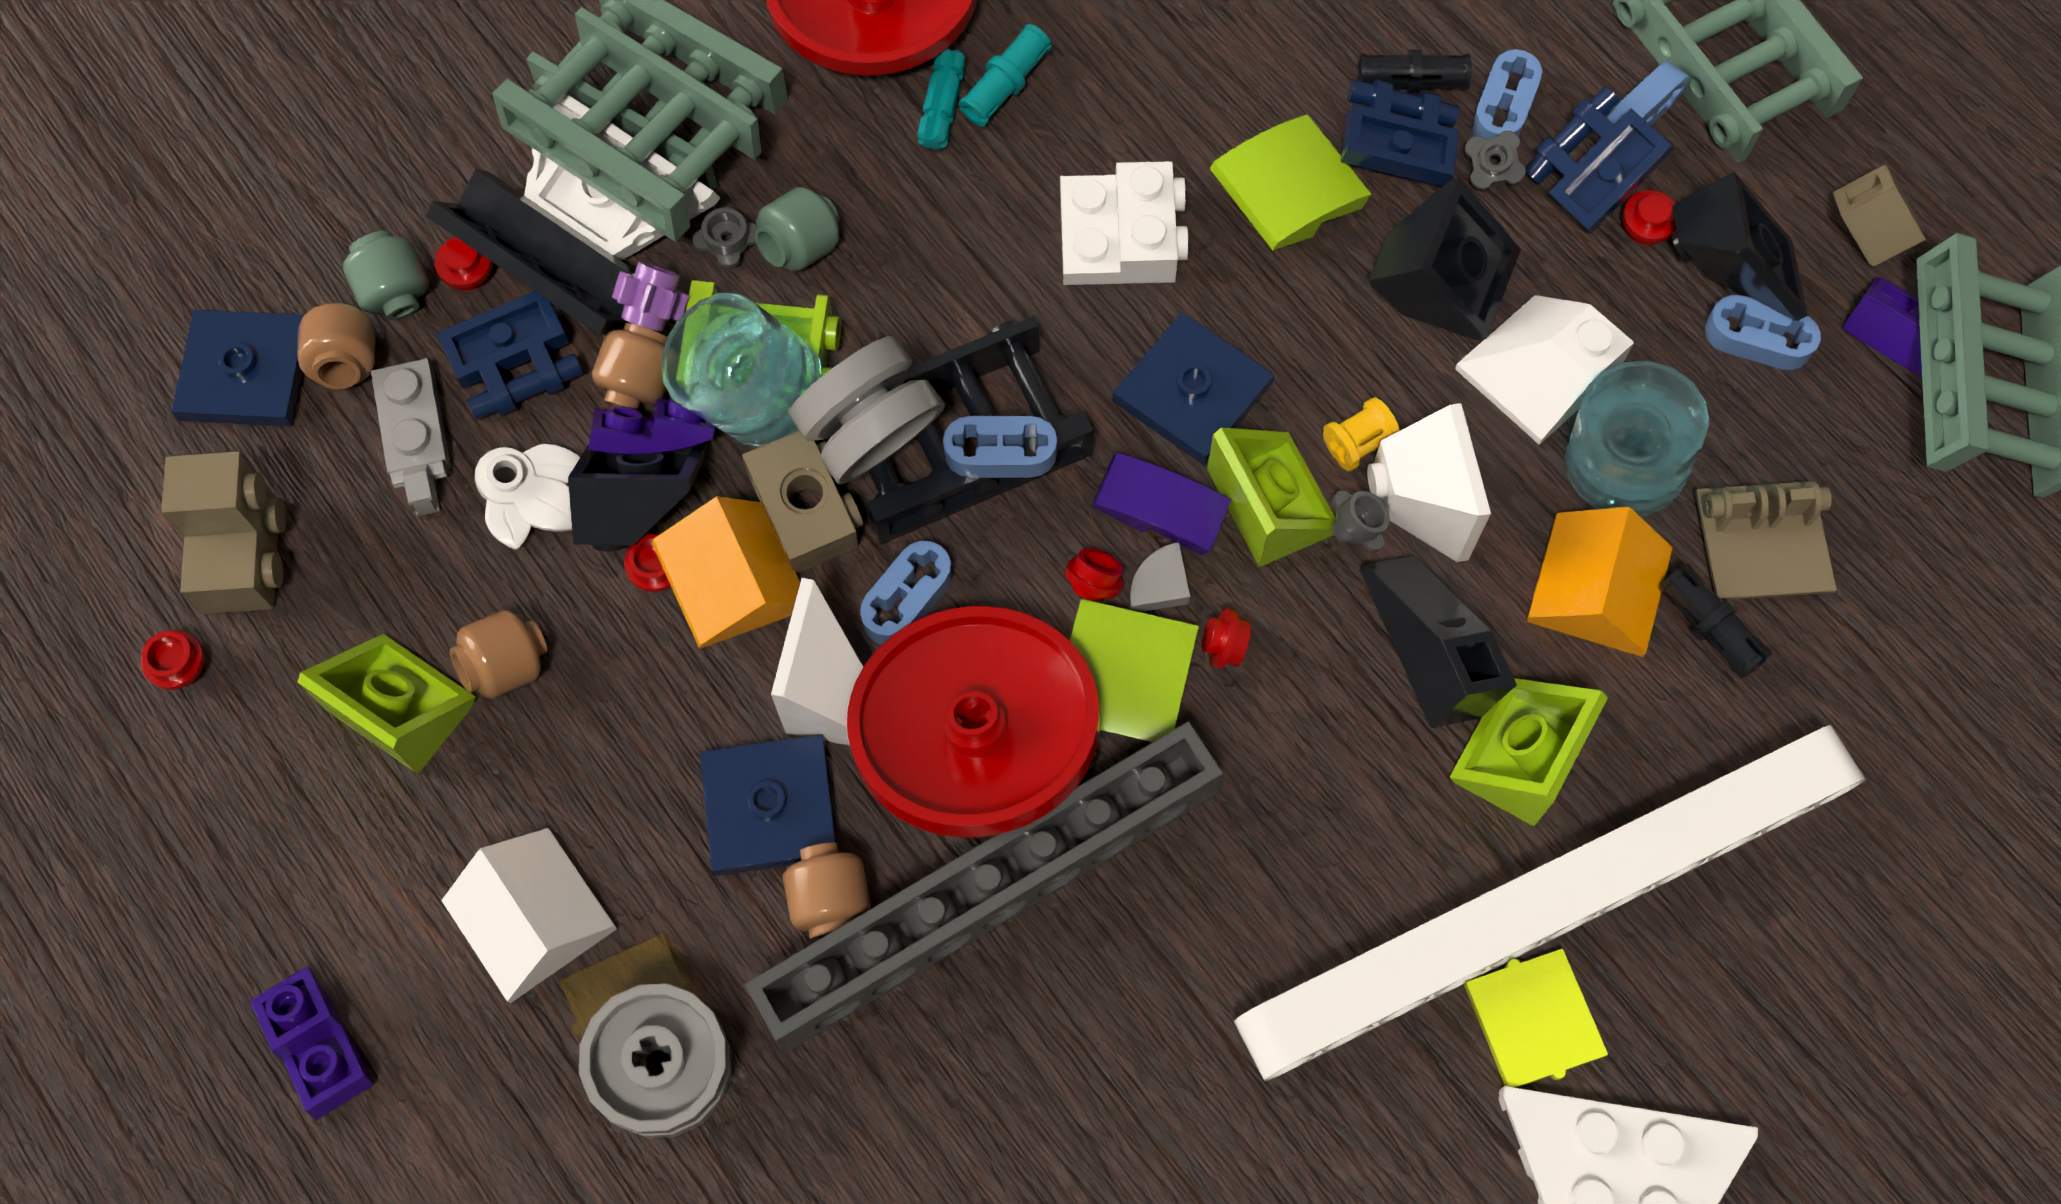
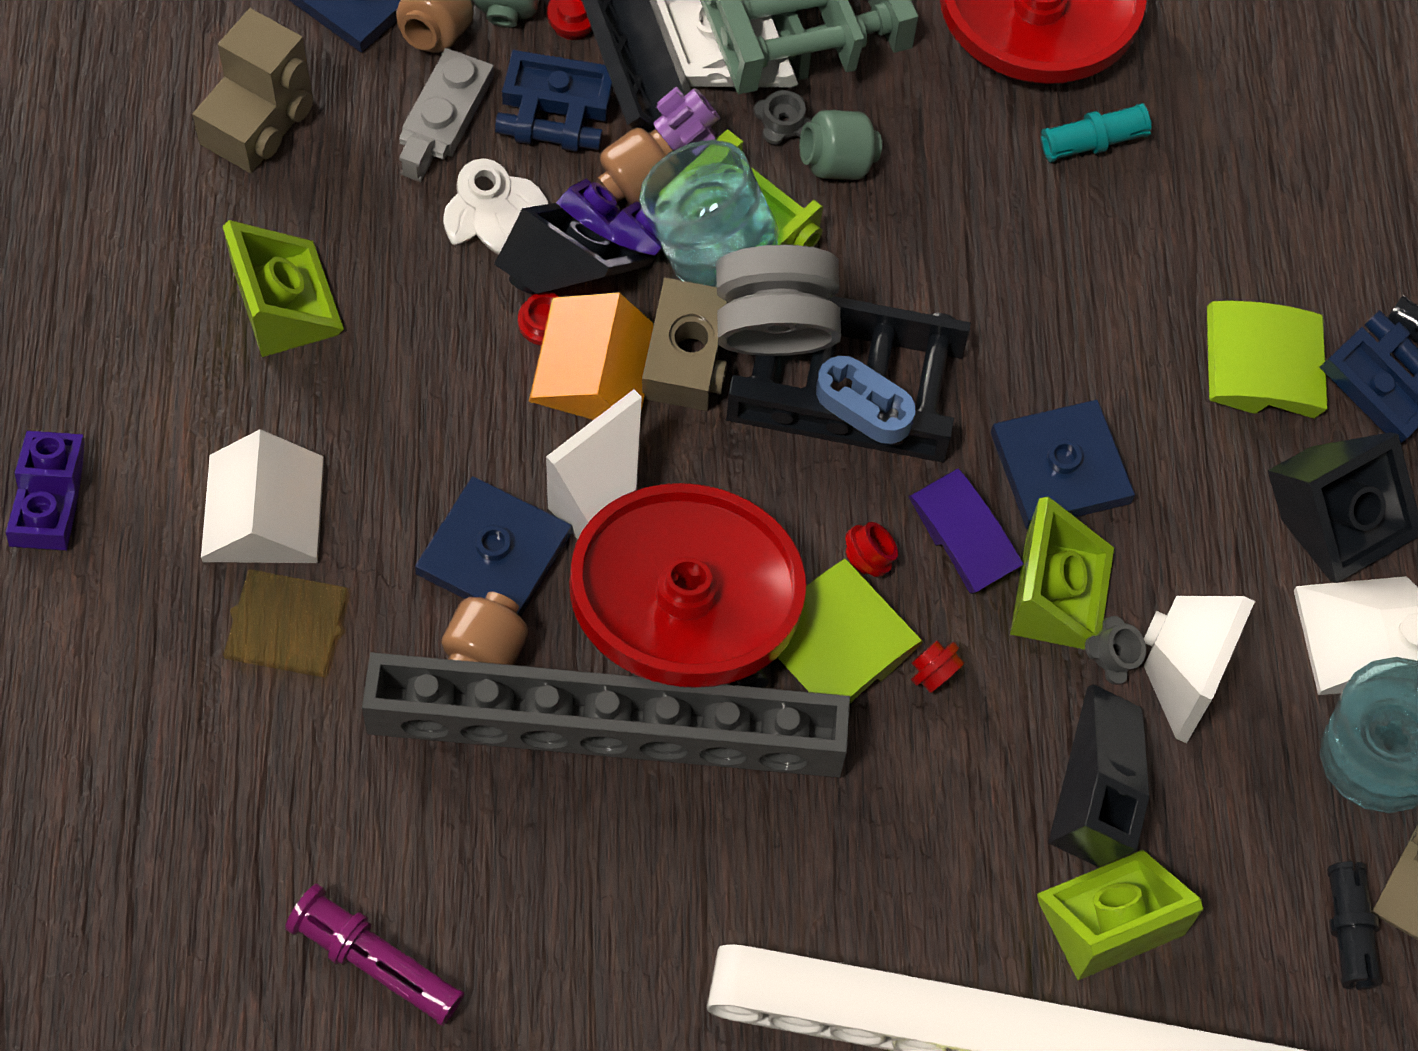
camera: 30 degrees right, 5 degrees down
(172, 659) = (153, 160): red plate -> none
(498, 654) = (381, 307): medium nougat head -> none
(625, 1037) = (299, 660): light grey wheel -> none
(896, 584) = (716, 462): medium blue beam -> none
(941, 99) = (1031, 120): teal axle -> none
(1123, 225) = (1101, 304): white plate -> none
(1160, 581) = (919, 589): light grey tile -> none
(1360, 433) = (1163, 583): yellow bush -> none
(1601, 578) = (1286, 830): light orange slope -> none

